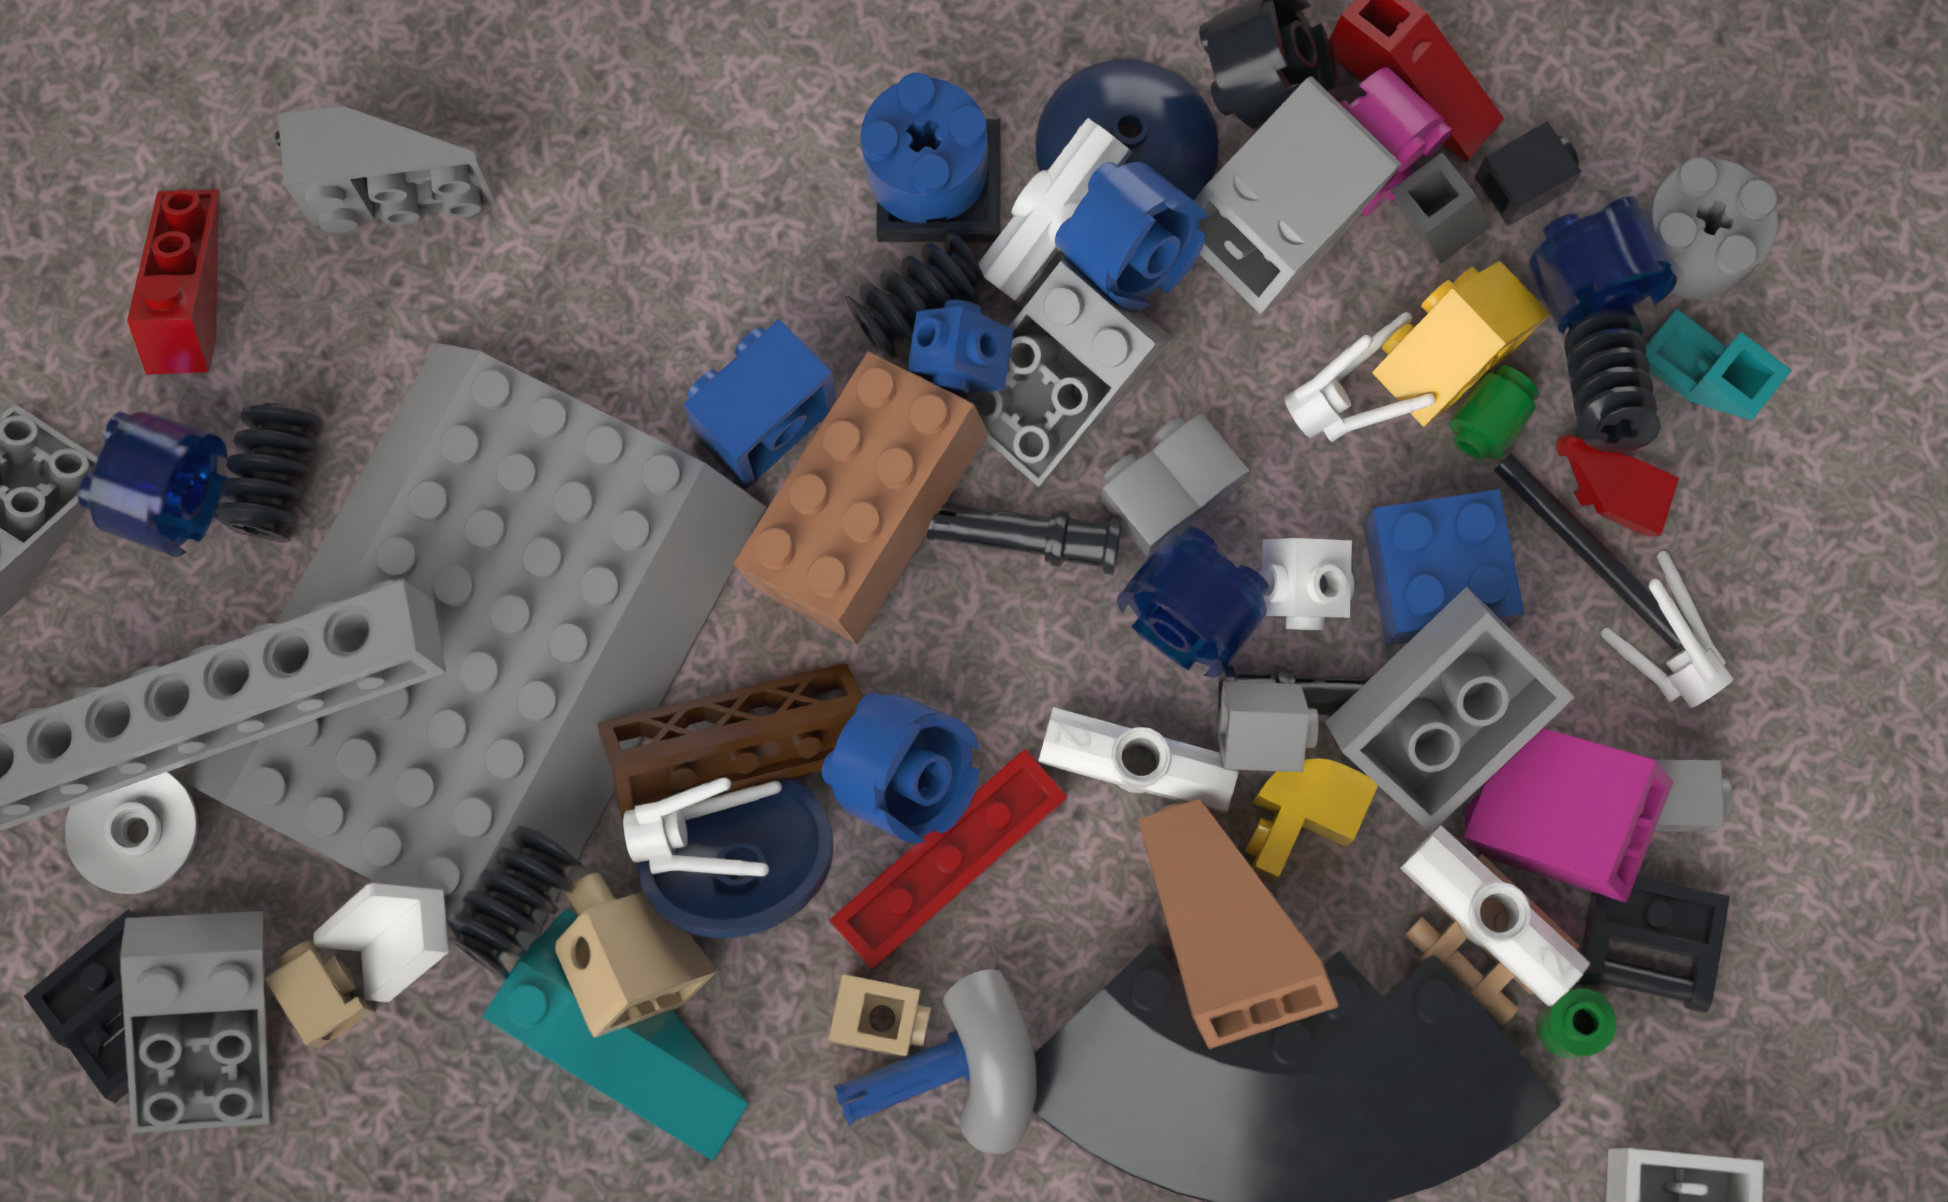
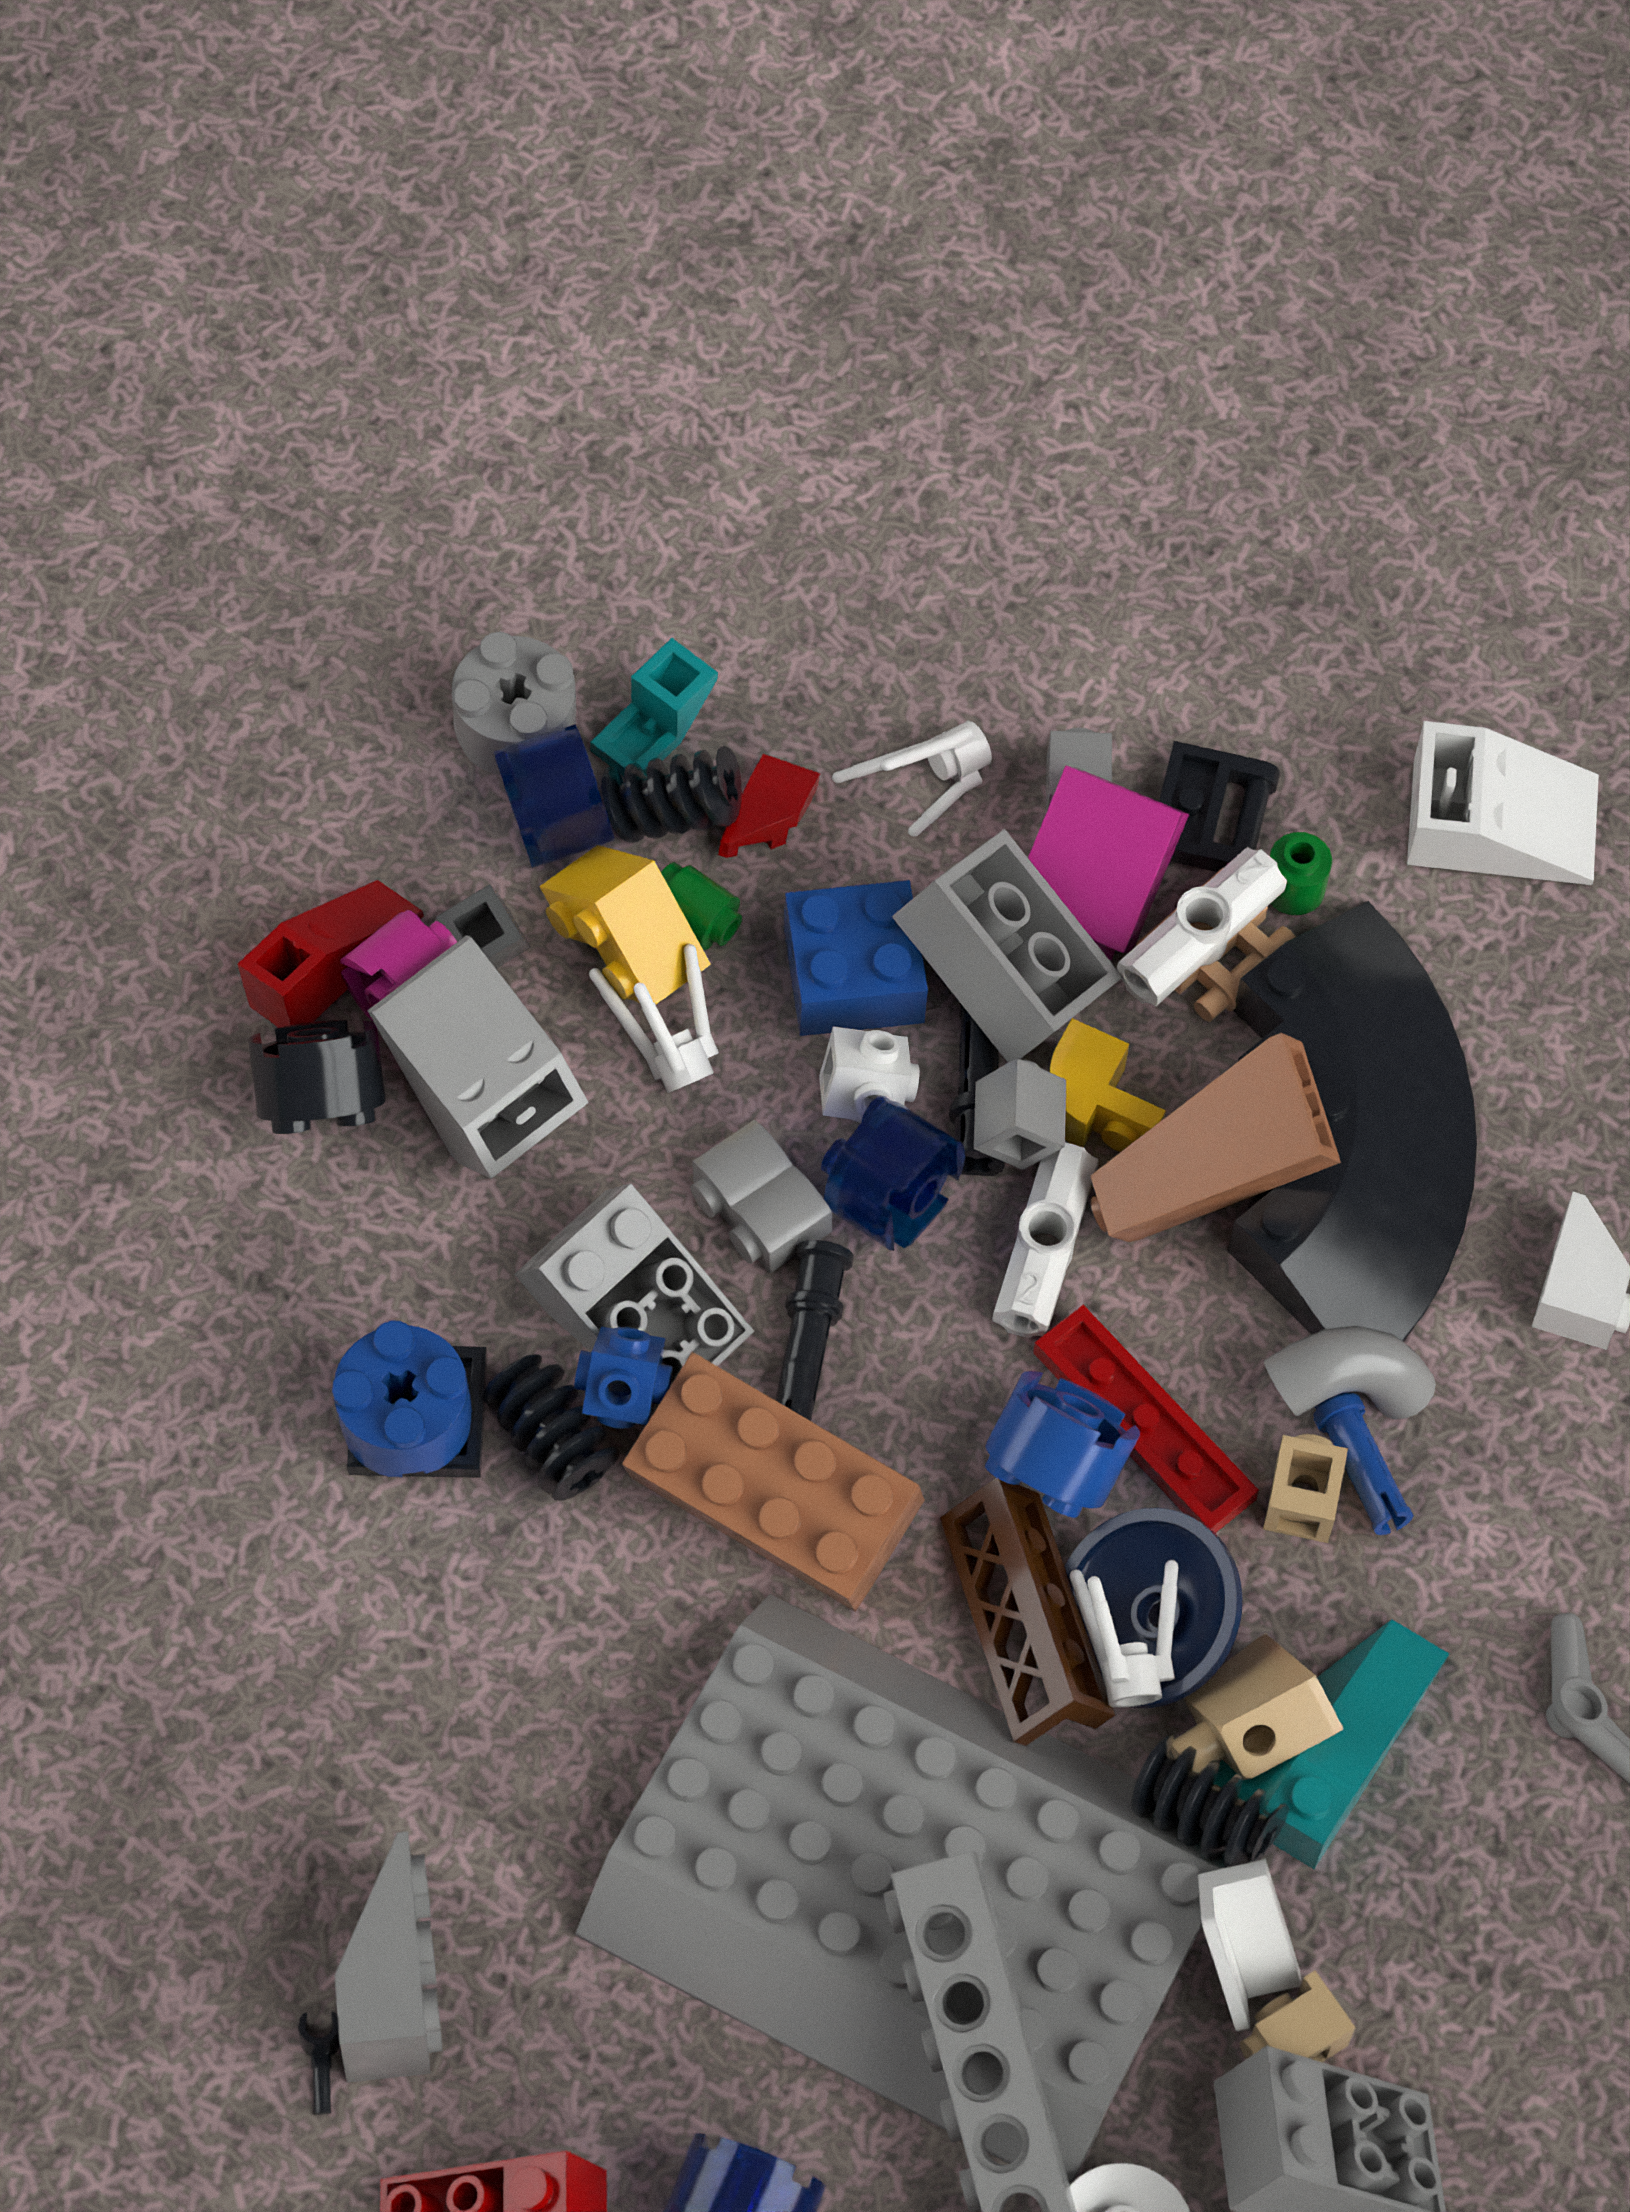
camera: 90 degrees left, 15 degrees down
(265, 470) = (725, 2096): black piece -> none
(760, 402) = (674, 1573): blue brick -> none
(1043, 205) = (466, 1287): white piece -> none
(1132, 233) = (510, 1201): blue brick -> none
(1172, 117) = (391, 1265): dark blue dish -> none
(1529, 172) = (444, 856): black brick -> none
(1586, 546) = (832, 836): black bar -> none

